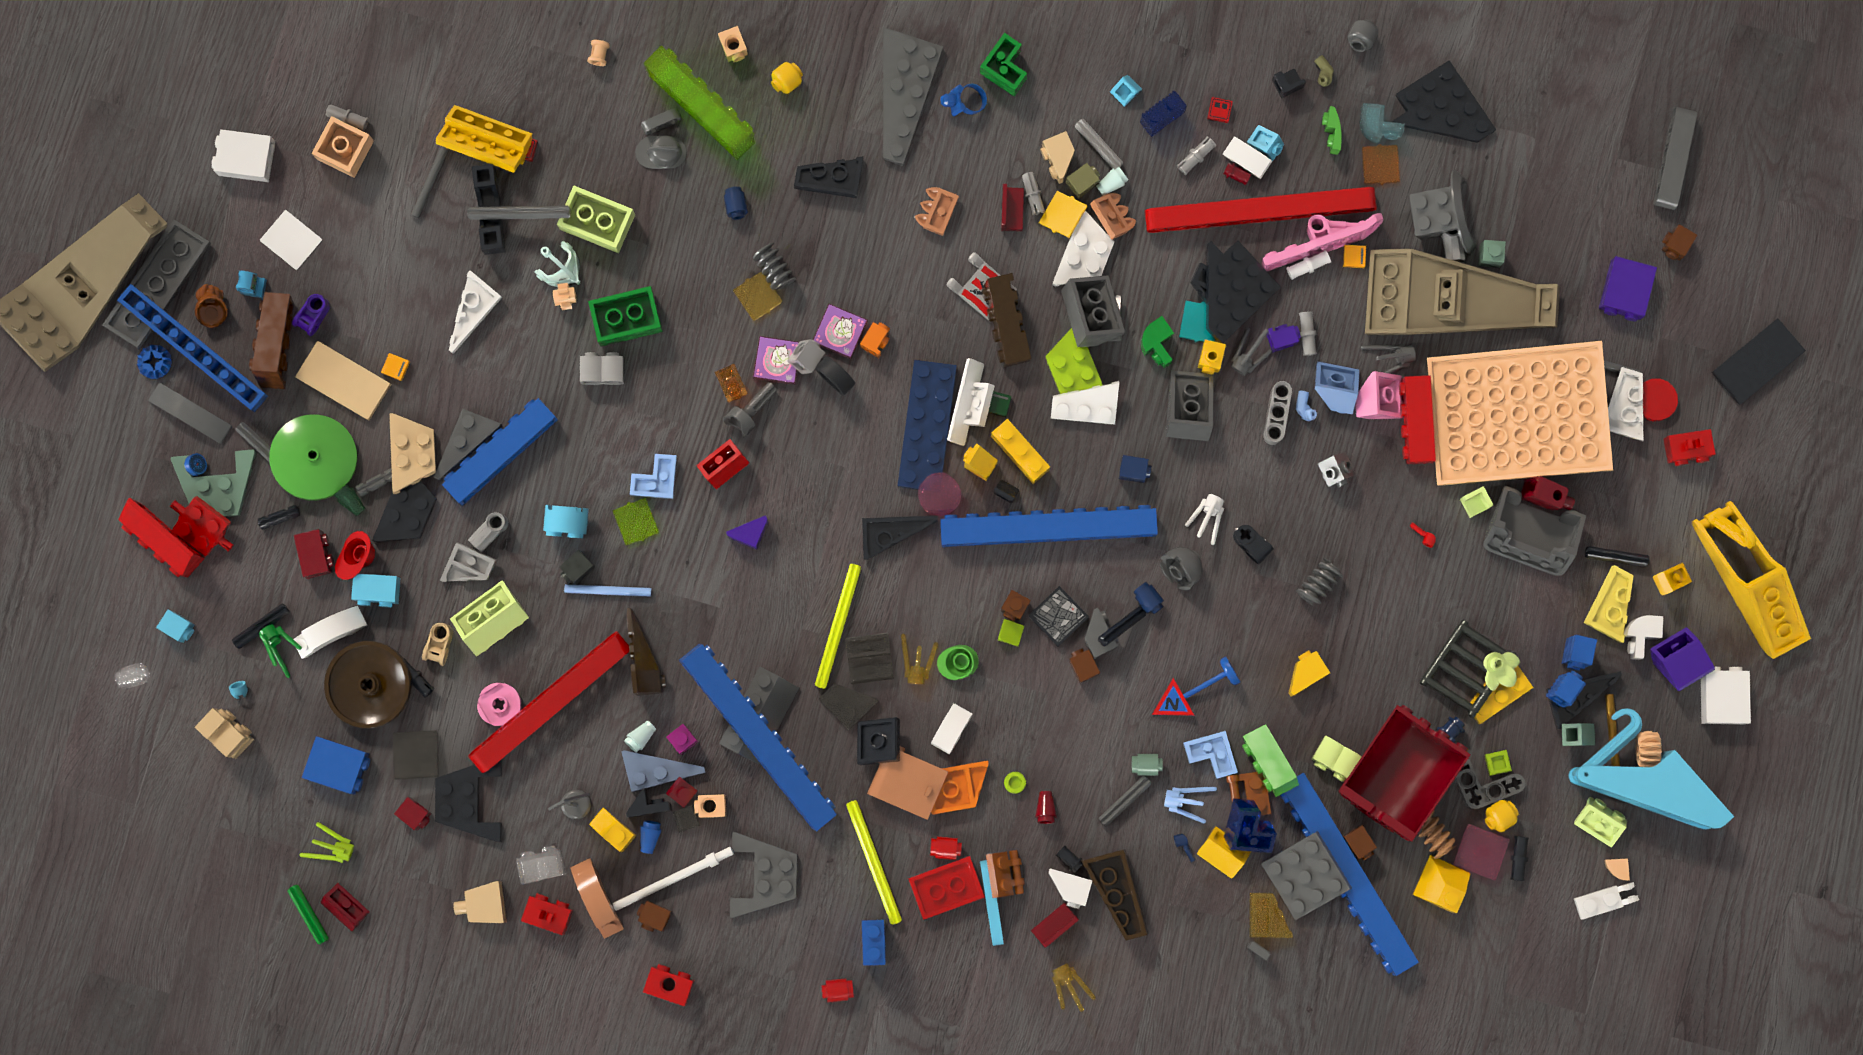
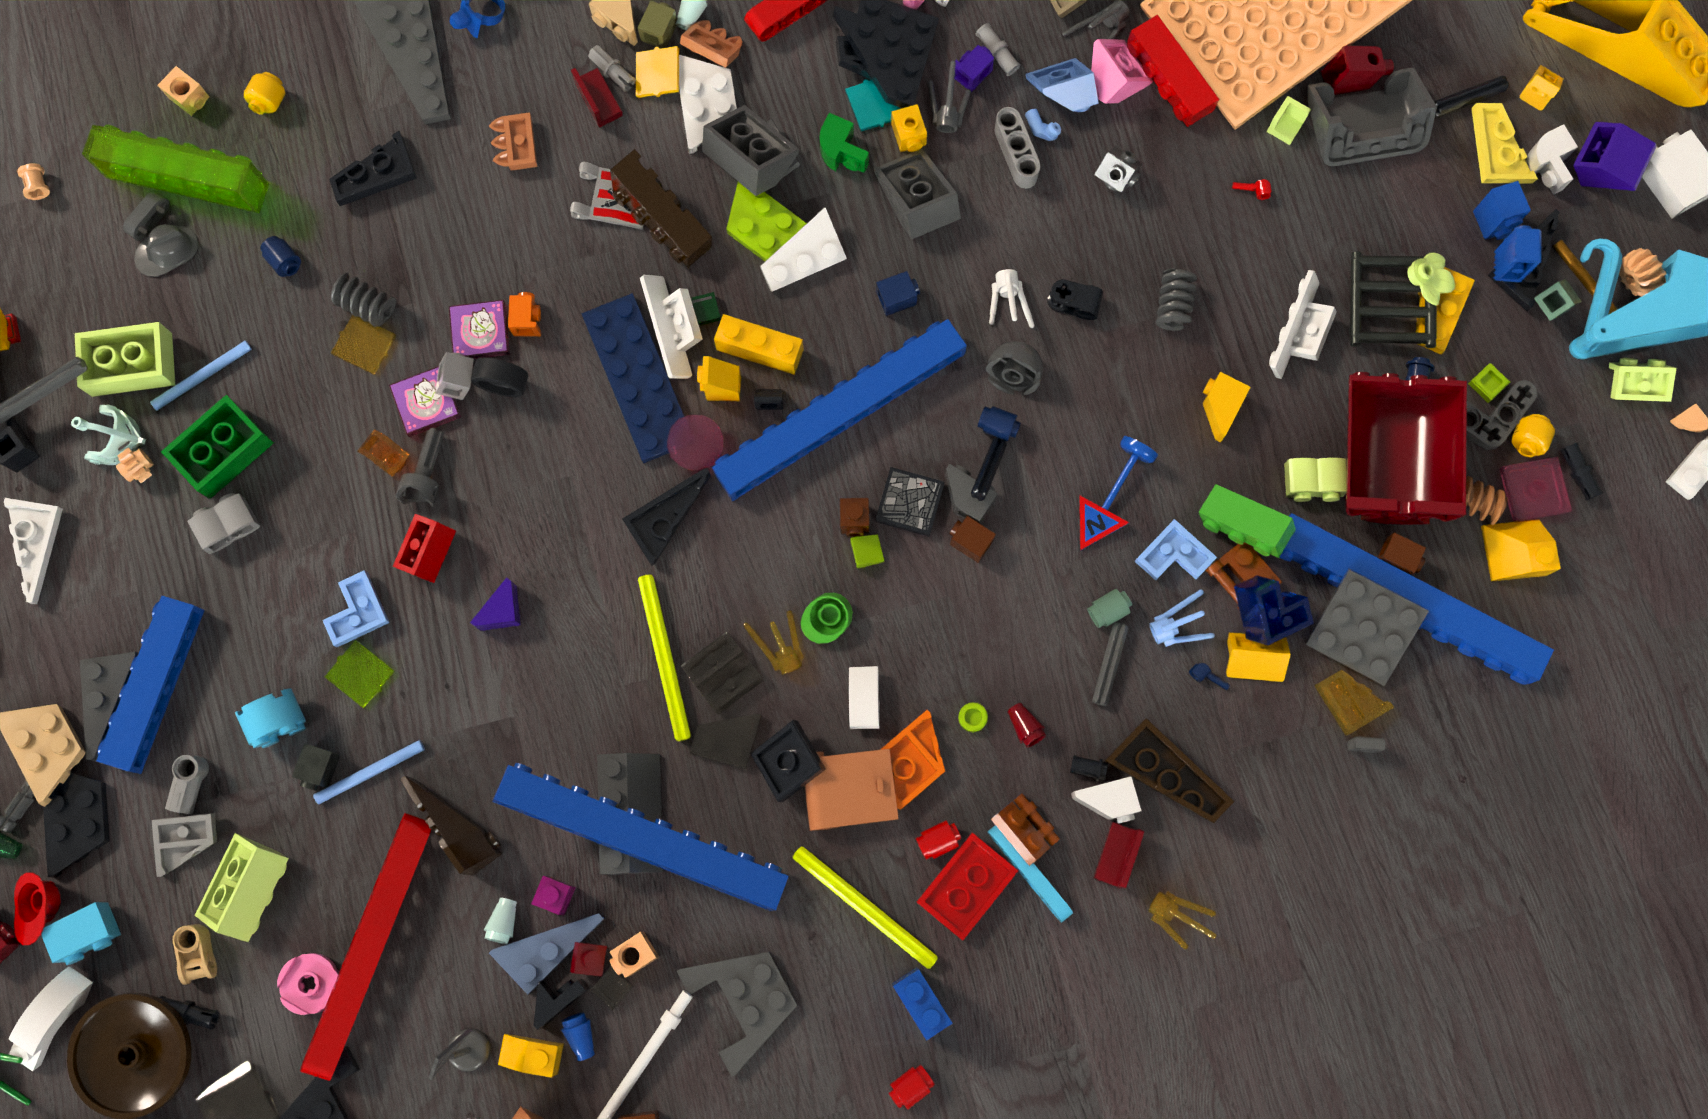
camera: 30 degrees left, 5 degrees down
(637, 256) = (200, 375): none -> light blue bar
(1395, 653) = (1305, 329): none -> white bracket

